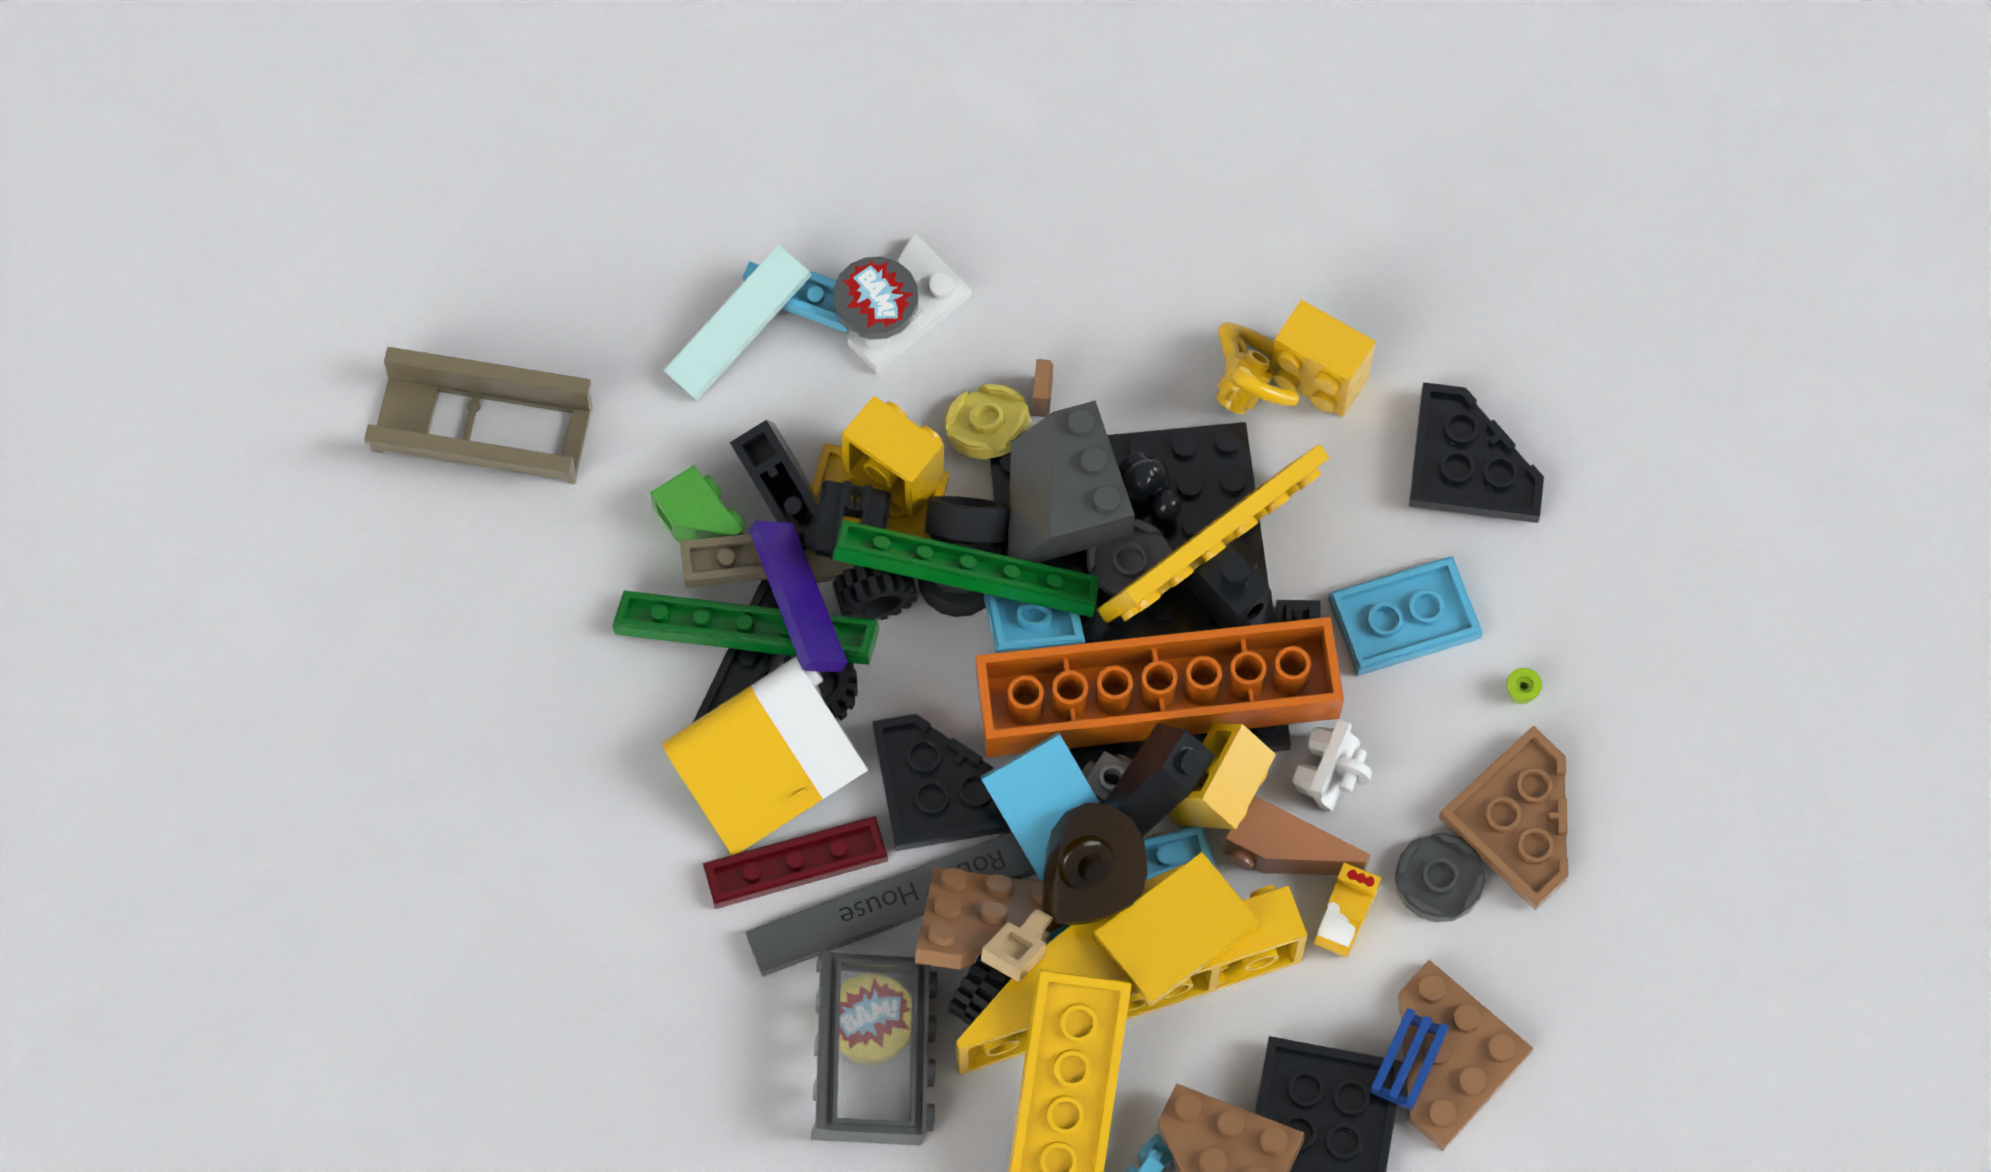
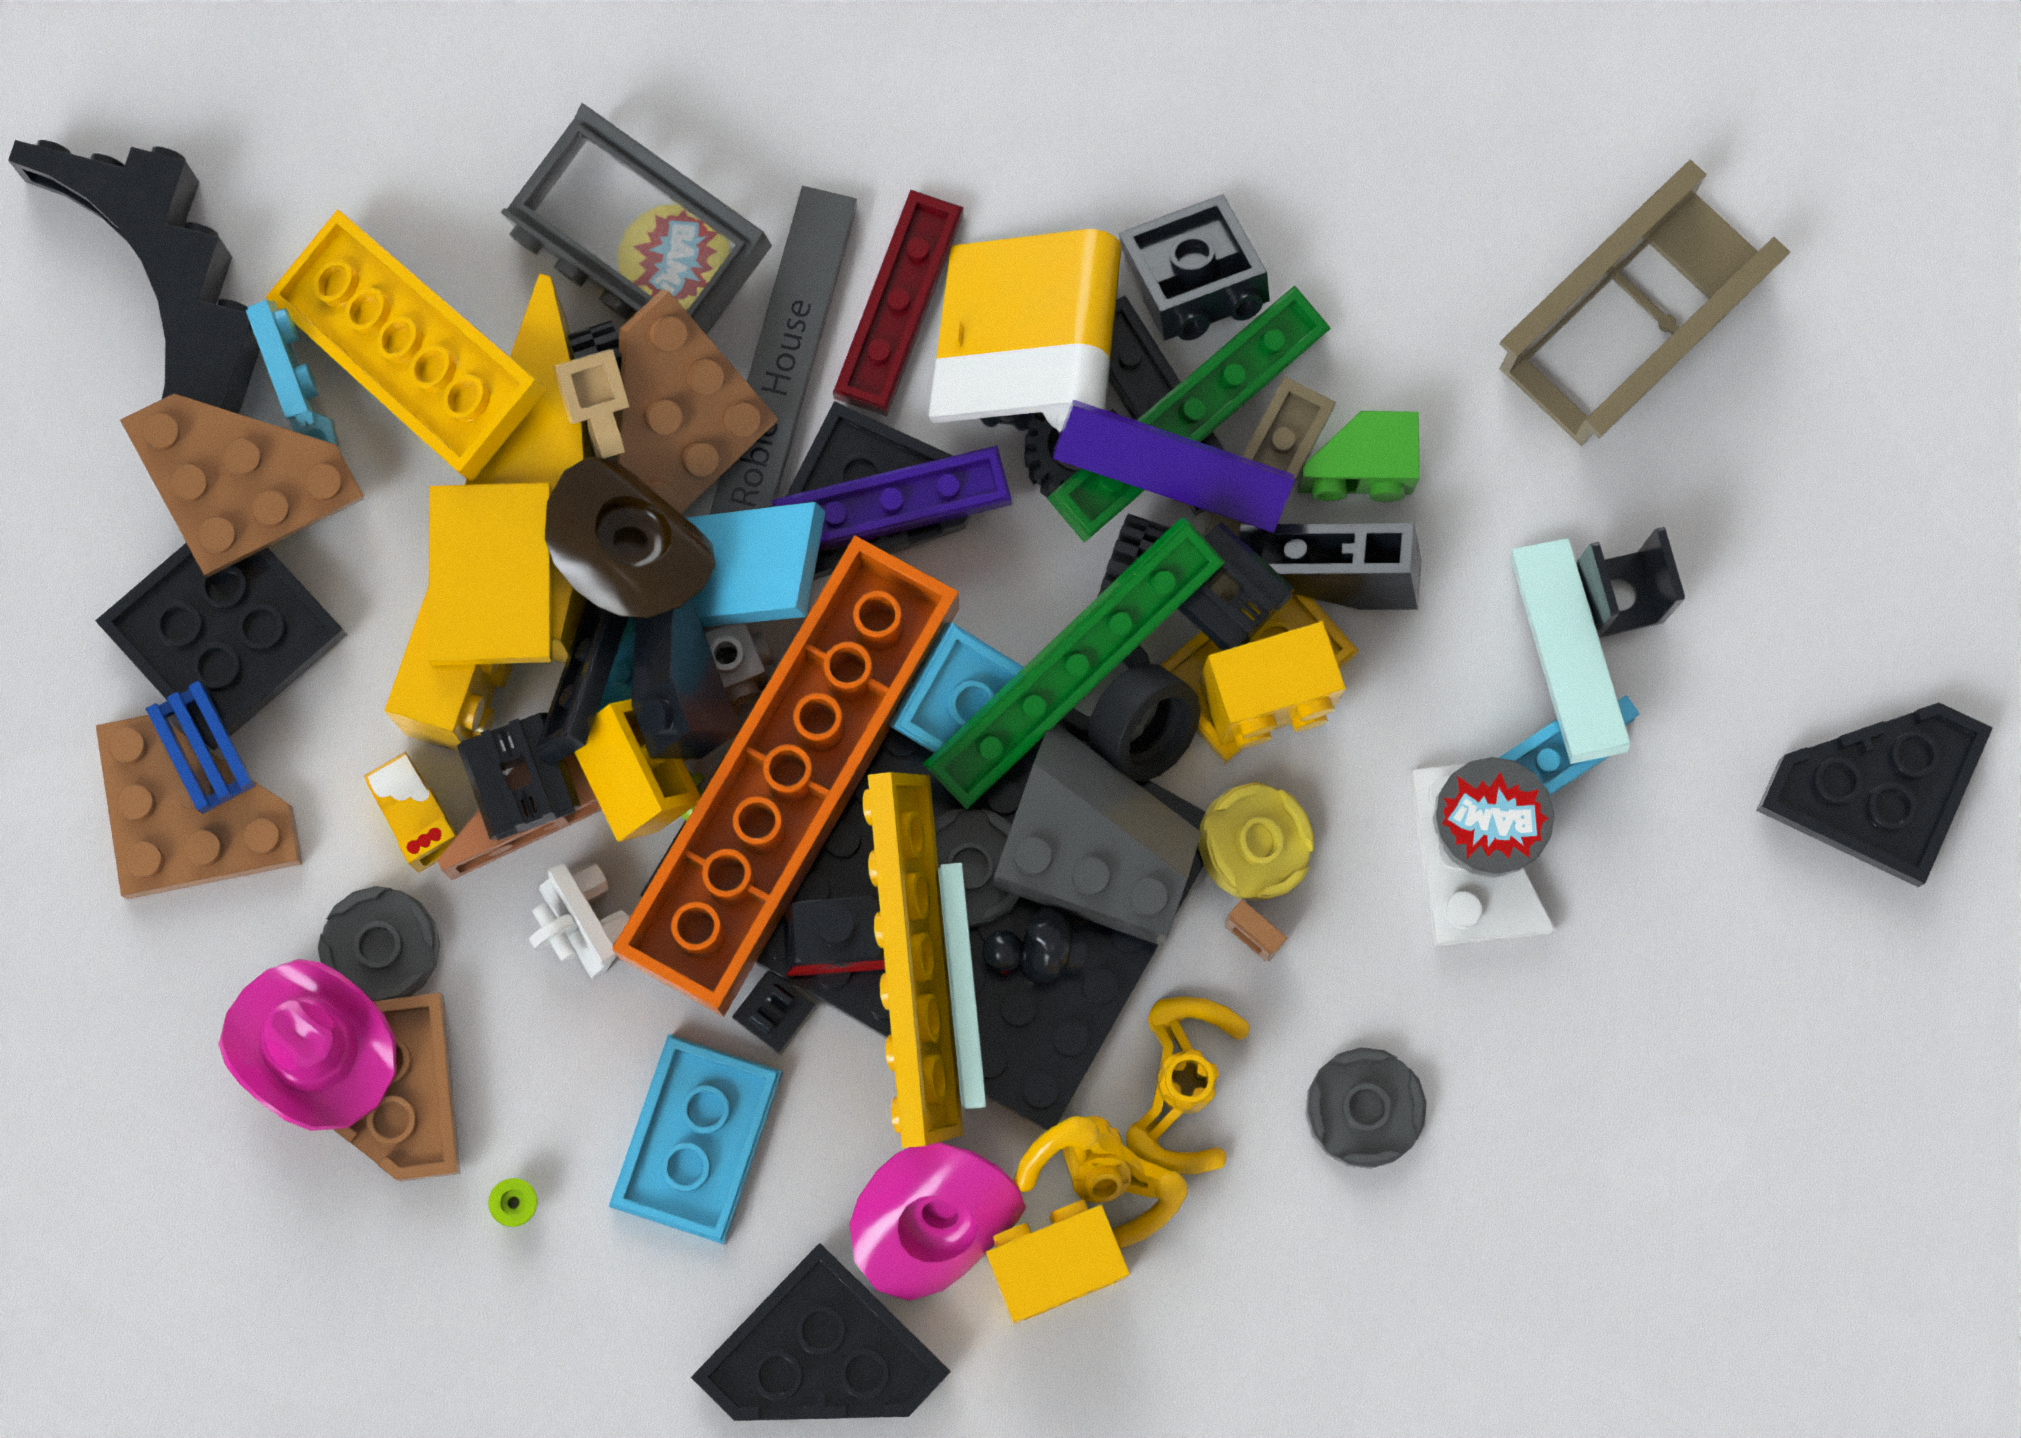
camera: 125 degrees right, 10 degrees up
(643, 691) = (1196, 268): none -> black plate
(660, 302) = (1650, 574): none -> black piece
(692, 112) = (1882, 788): none -> black plate
(930, 757) = (908, 497): none -> dark purple tile
(1097, 270) = (1365, 1108): none -> dark grey tile
(1160, 370) = (1183, 1082): none -> yellow piece
(1205, 508) = (962, 986): none -> light aqua tile
(1211, 833) = (581, 683): none -> black tile
(1304, 845) = (498, 803): none -> black piece
(1358, 448) = (930, 1218): none -> dark pink hat
(1532, 858) = (309, 1046): none -> dark pink hat

